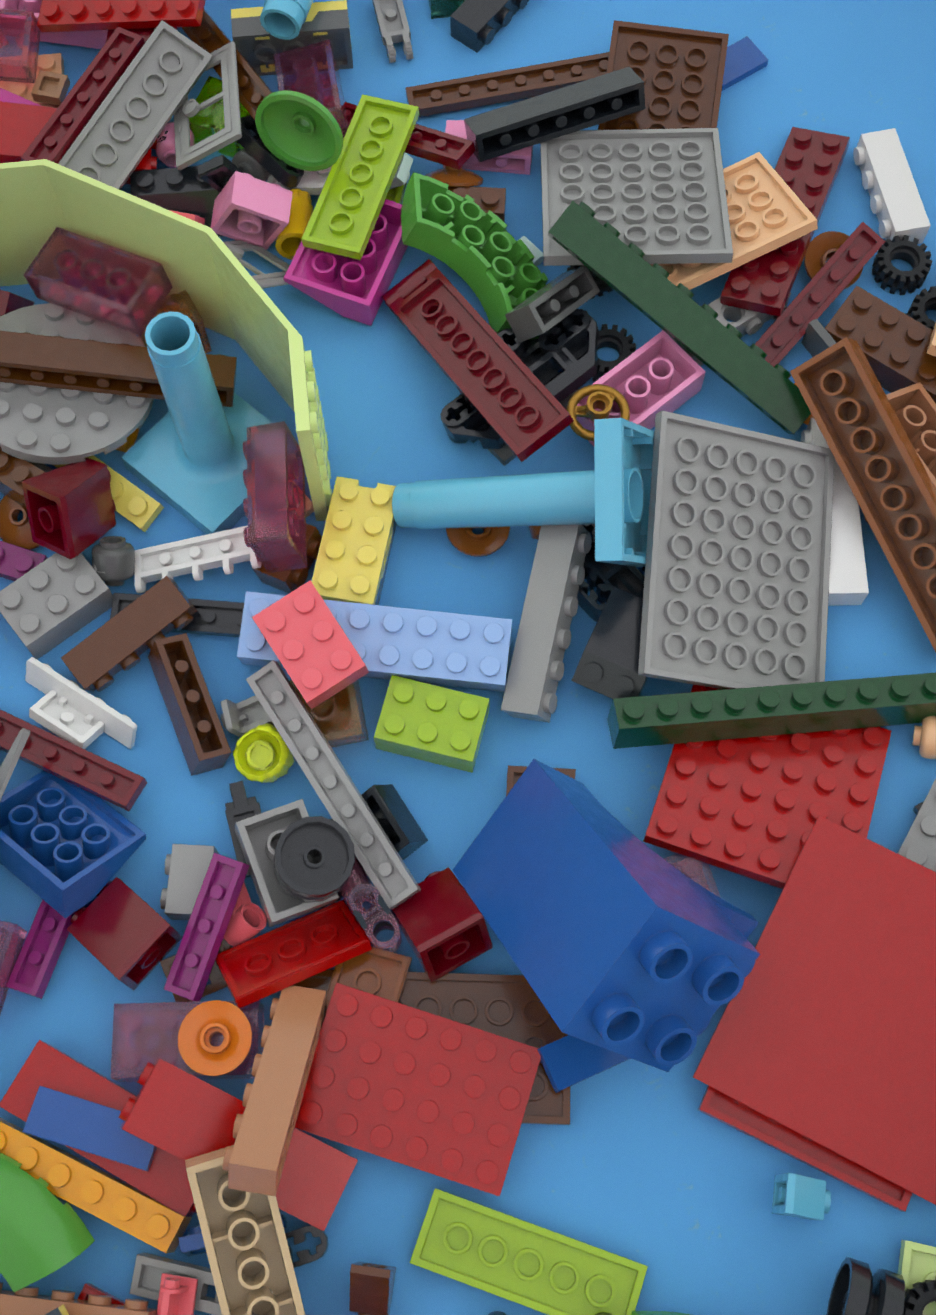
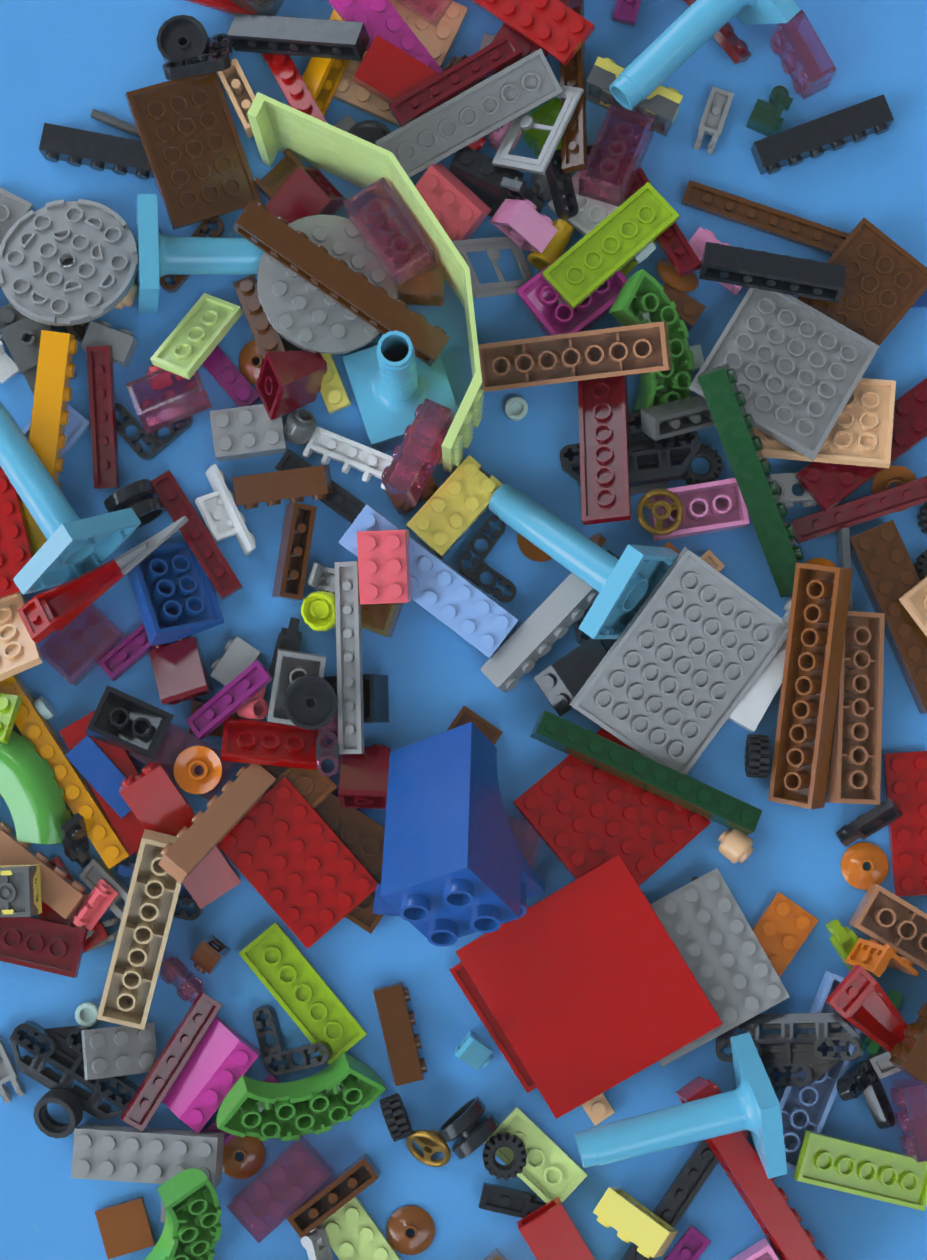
camera: 30 degrees right, 15 degrees up
(50, 87) = (443, 40): medium nougat plate -> none
(86, 1033) = (129, 723): none -> black slope
(97, 1239) = (75, 840): none -> black hinge
(299, 130) = (585, 193): bright green dish -> none
(360, 409) = (516, 408): none -> light aqua tile
(403, 293) = (575, 356): none -> nougat brick
(427, 598) = (480, 566): none -> black beam
(431, 723) = (434, 651): lime brick -> none
(690, 1239) = (399, 1033): none -> reddish brown brick
(891, 618) = (757, 756): none -> black tyre

